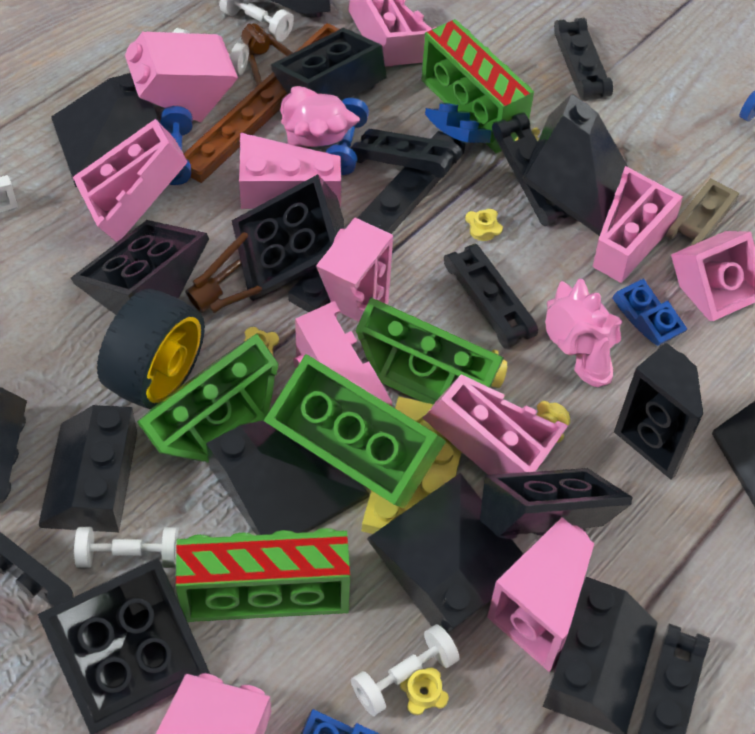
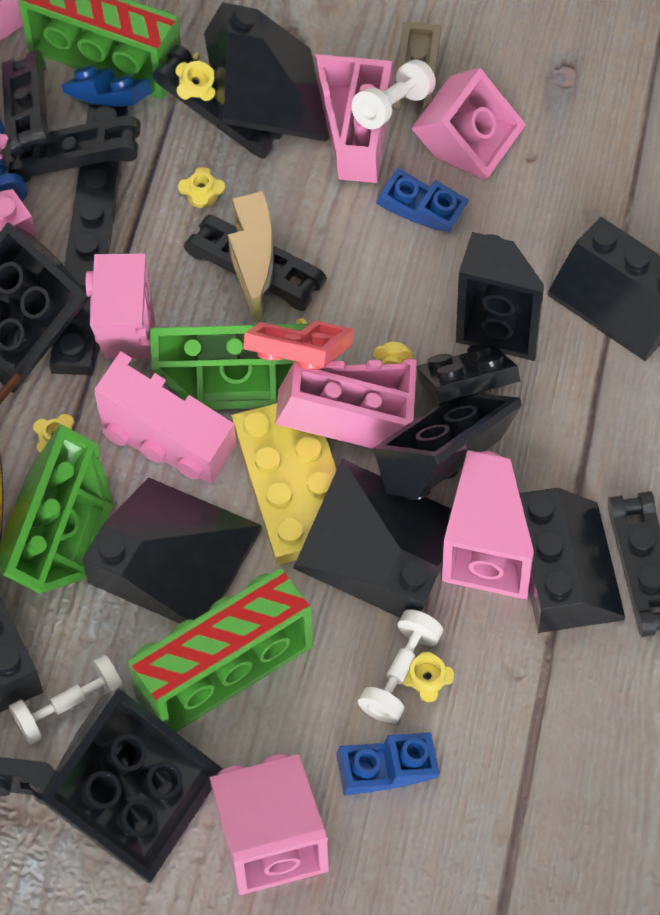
camera: 25 degrees left, 5 degrees up
(355, 431) = (223, 470): bright green brick -> none
(390, 106) = (25, 102): none -> black plate
(477, 368) = (310, 347): none -> coral plate
(489, 283) = (253, 250): none -> tan slope
(523, 134) = (202, 73): none -> light yellow plate
(584, 328) = (372, 254): bright pink head -> none
(605, 459) = (468, 373): none -> black plate
(645, 219) = (373, 107): none -> white wheel

